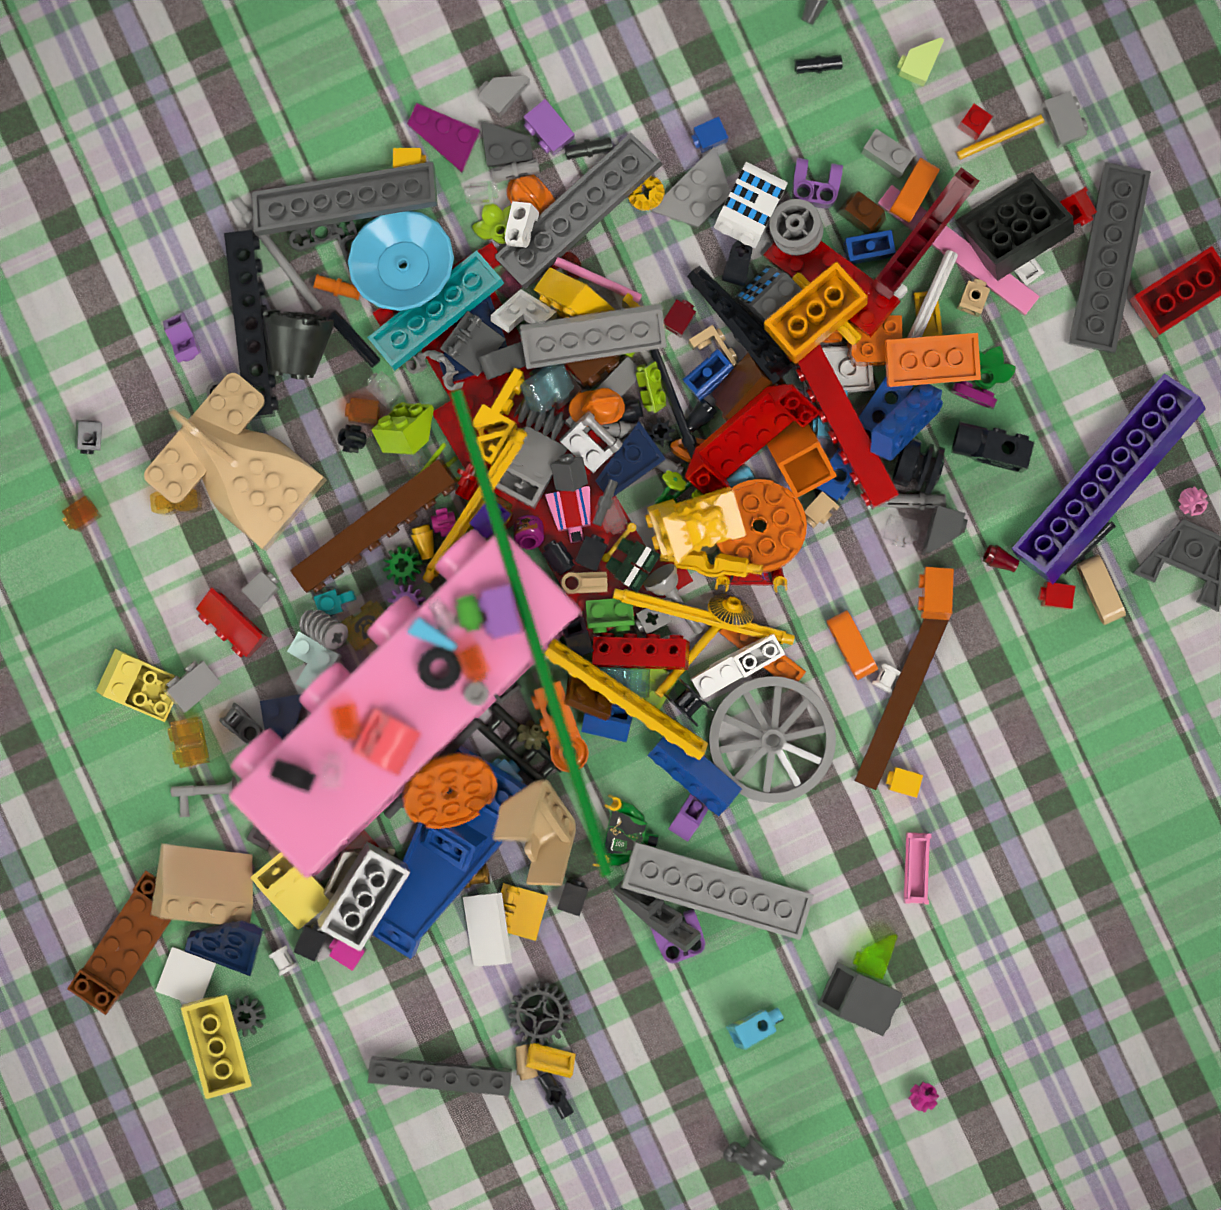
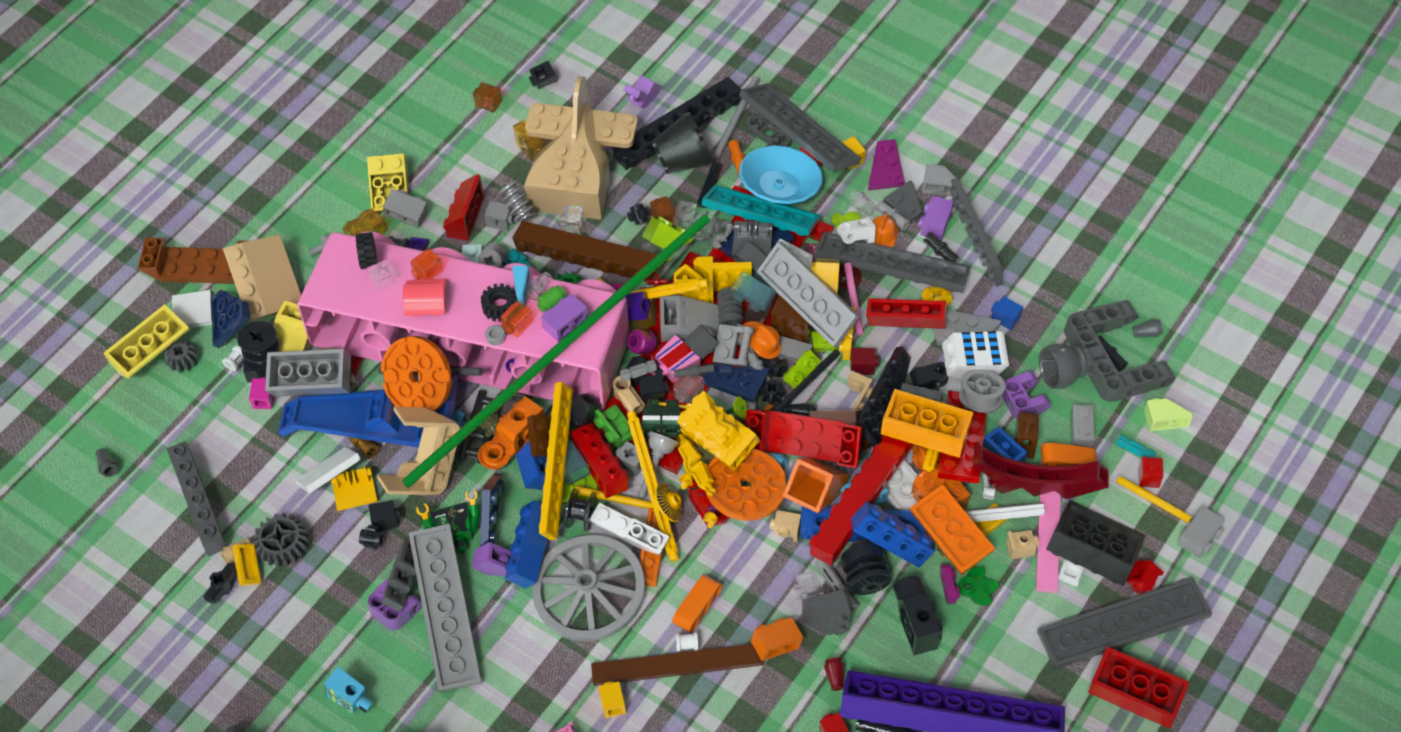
camera: 60 degrees right, 30 degrees down
(244, 696) = (418, 243): none -> dark purple tile
(267, 563) = (516, 201): none -> light grey piece
(280, 921) = (257, 340): none -> black piece
(316, 515) = (572, 219): none -> clear brick
(338, 1149) = (106, 464): none -> dark grey cone
(416, 381) = (709, 231): none -> clear brick
(568, 558) = (638, 370): none -> light grey axle
(588, 100) = (975, 230): none -> dark grey plate
(592, 923) = (371, 537): none -> black gear
(634, 788) = (490, 508): none -> dark blue plate
(655, 239) = (907, 313): none -> red brick
(708, 375) = (833, 396): blue brick -> none
(812, 122) = (1064, 364): none -> dark grey piece
(936, 115) = (1134, 447): none -> teal axle

